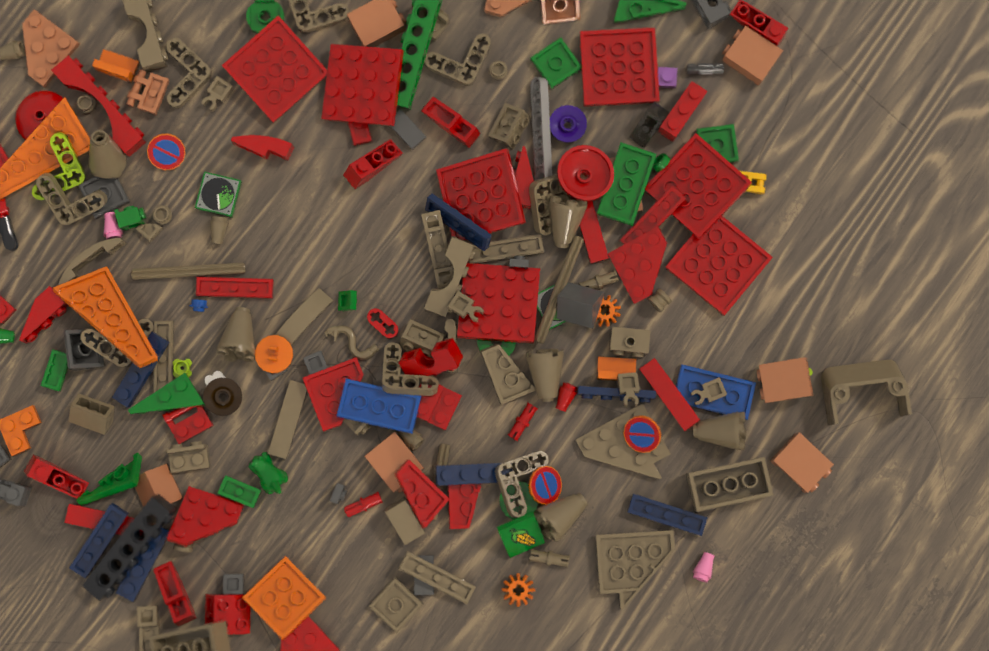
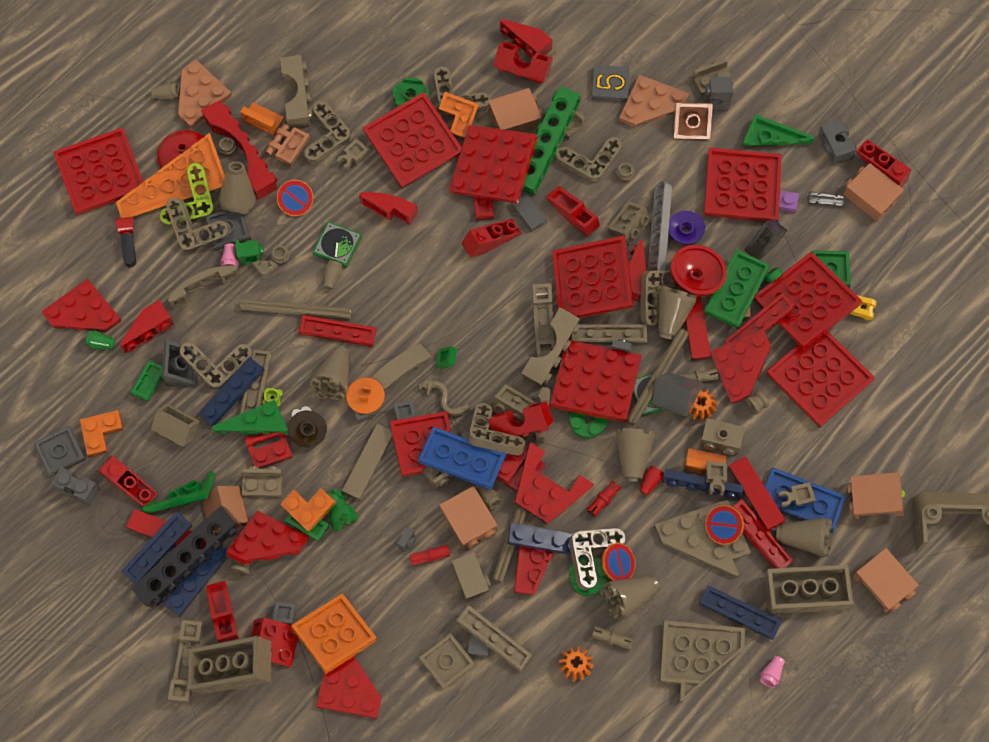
camera: 10 degrees right, 15 degrees down
(105, 308) = (211, 330): orange wing -> none
(198, 305) = (299, 341): blue plate -> none
(238, 483) = (310, 512): none -> orange plate
(322, 28) = (462, 110): none -> orange plate
(386, 320) = (480, 382): red beam -> none
(420, 492) = (491, 547): red wing -> none
(459, 222) = (569, 299): dark blue plate -> none
(462, 428) = (540, 494): none -> red wing
(463, 305) = (562, 374): dark tan plate -> none
(505, 375) = (592, 450): dark tan wing -> none
(521, 534) = (587, 607): green tile -> none
(556, 63) = (682, 173): green tile -> none
(678, 438) = (762, 539): none -> red tile
(682, 111) = (794, 236): red arch -> none

